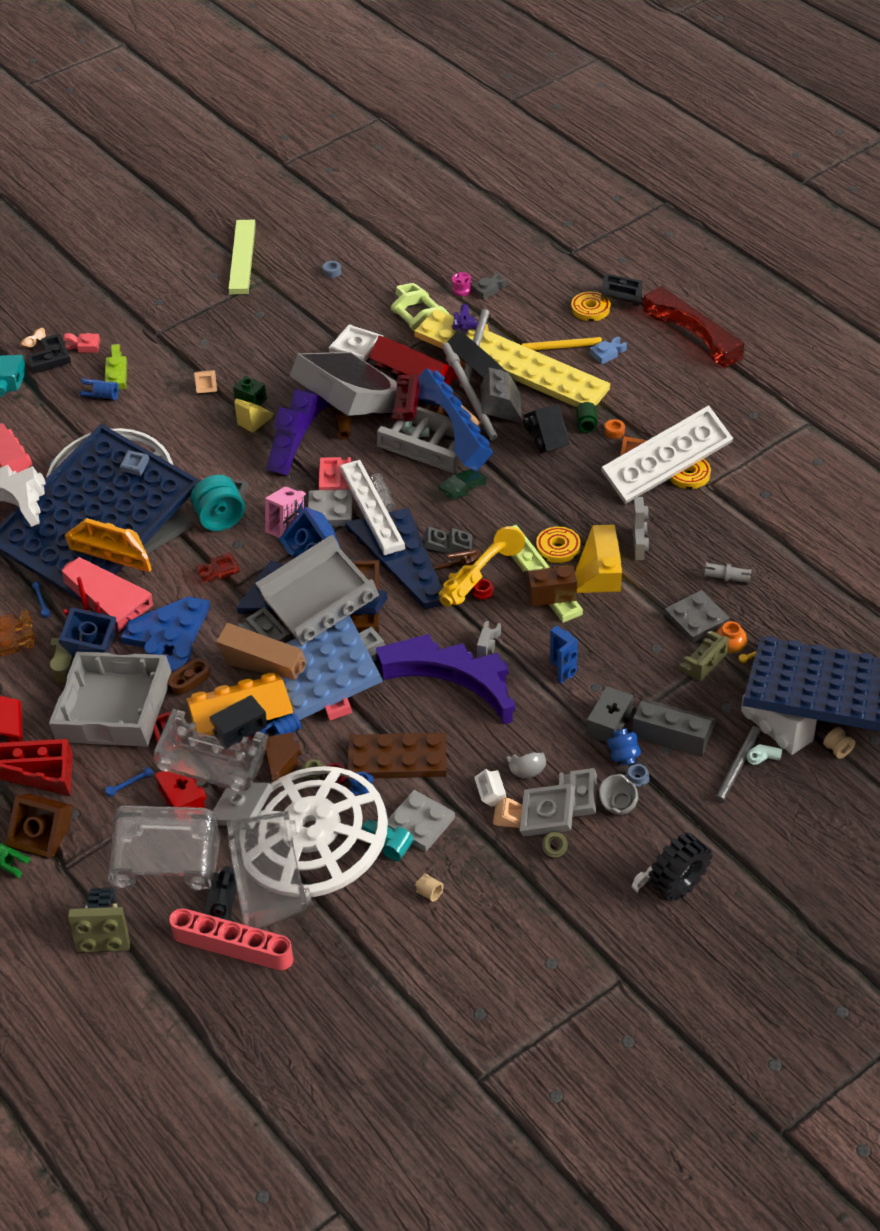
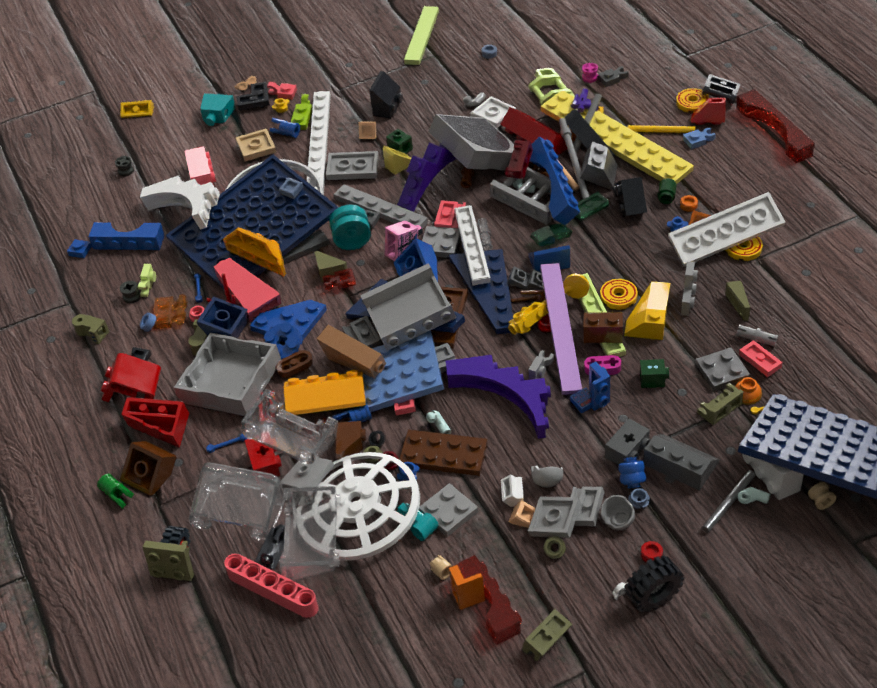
camera: 15 degrees right, 0 degrees up
(50, 630) = (195, 312): none -> coral plate
(67, 414) = (255, 144): none -> tan plate
(85, 361) = (281, 105): none -> yellow plate
(144, 390) = (319, 135): none -> white plate
(197, 427) = (352, 165): none -> light grey plate
(200, 551) = (328, 265): none -> olive slope
(218, 337) = (385, 96): none -> black slope
(238, 721) = (318, 406): black hinge -> none
(256, 477) = (386, 209): none -> light grey plate
(309, 750) = (373, 438): none -> black hinge
(323, 334) = (474, 102): none -> light grey arm
(381, 718) = (438, 420): none -> light aqua arm
(465, 908) = (468, 590): none -> orange panel
(469, 513) = (551, 256): none -> blue slope
(470, 893) = (501, 619): none -> clear red arch
(502, 443) = (591, 205): none -> clear green plate
(502, 593) = (560, 329): none -> lavender tile
(545, 672) = (581, 400): none -> blue tile
(564, 623) = (604, 361): none -> dark pink beam
(570, 943) = (546, 634): none -> olive hinge
(607, 455) = (677, 223): none -> blue plate
(617, 316) = (711, 110): none -> red slope
(620, 631) = (653, 373): none -> dark green brick
(664, 833) = (651, 550): none -> red tile
(697, 533) = (736, 295): none -> olive slope
(737, 598) = (760, 358): none -> coral plate

